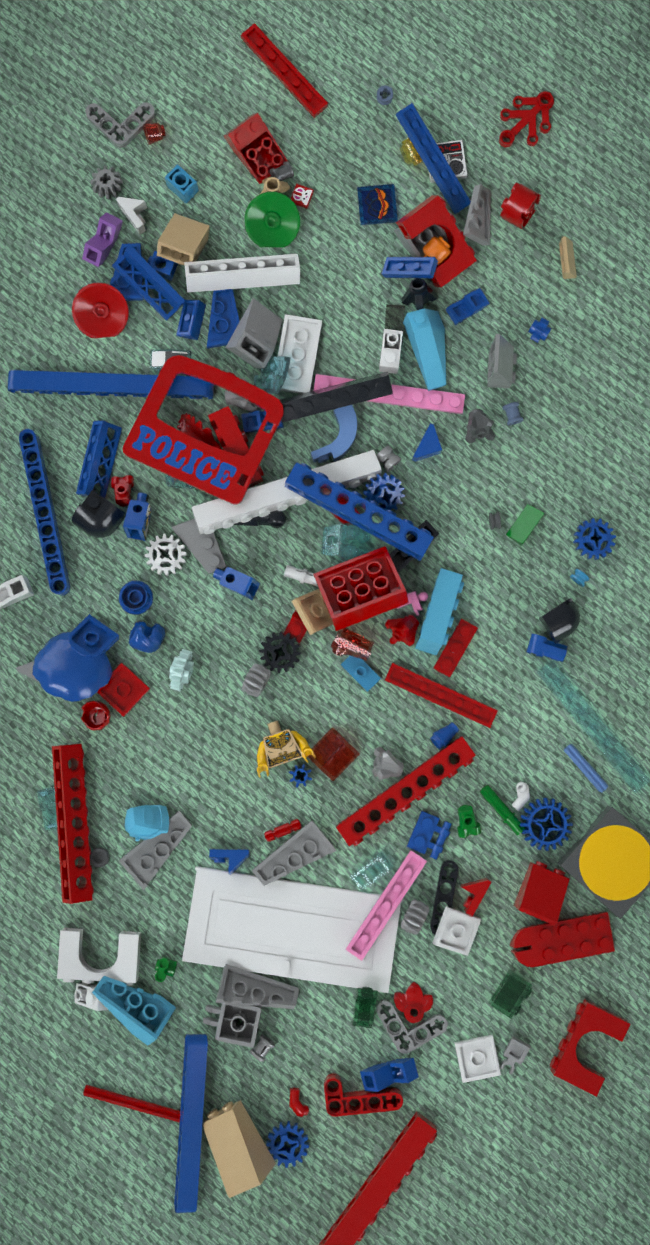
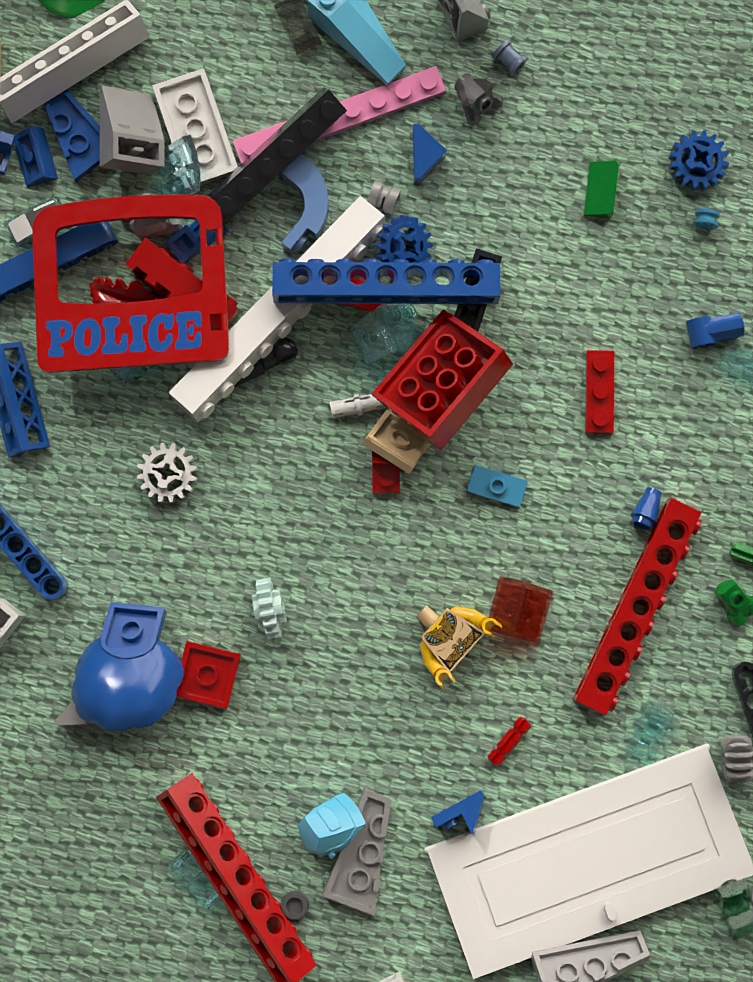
camera: 30 degrees left, 0 degrees up
(97, 516) = (53, 470): black brick -> none
(102, 718) = (200, 726): red hair -> none
(122, 489) = (66, 419): red plate -> none
(135, 597) = (159, 548): blue piece -> none
(138, 517) = (106, 444): blue torso -> none
(146, 638) = (201, 592): blue hair -> none
(202, 546) = (208, 436): light grey wing -> none
(242, 584) = (288, 457): blue torso -> none
(256, 680) = (371, 569): light grey gear -> none
(292, 657) = (395, 516): black gear -> none
(299, 780) = (486, 661): blue gear -> none
(301, 849) = (544, 756): light grey wing -> none
(350, 643) = (465, 457): clear red slope -> none
(386, 764) = (594, 586): light grey rock -> none
(386, 905) = (692, 764): bright pink plate -> none
(390, 351) = (313, 60): white slope -> none
(403, 629) = (522, 404): red rock -> none
(415, 599) = (517, 357): bright pink piece -> none
(423, 833) = (688, 646): blue plate -> none
(439, 612) = (556, 356): medium azure wedge -> none
(441, 695) = (615, 461): red plate -> none
(494, 520) = (561, 204): dark grey bush -> none
(561, 620) = (715, 284): black brick -> none

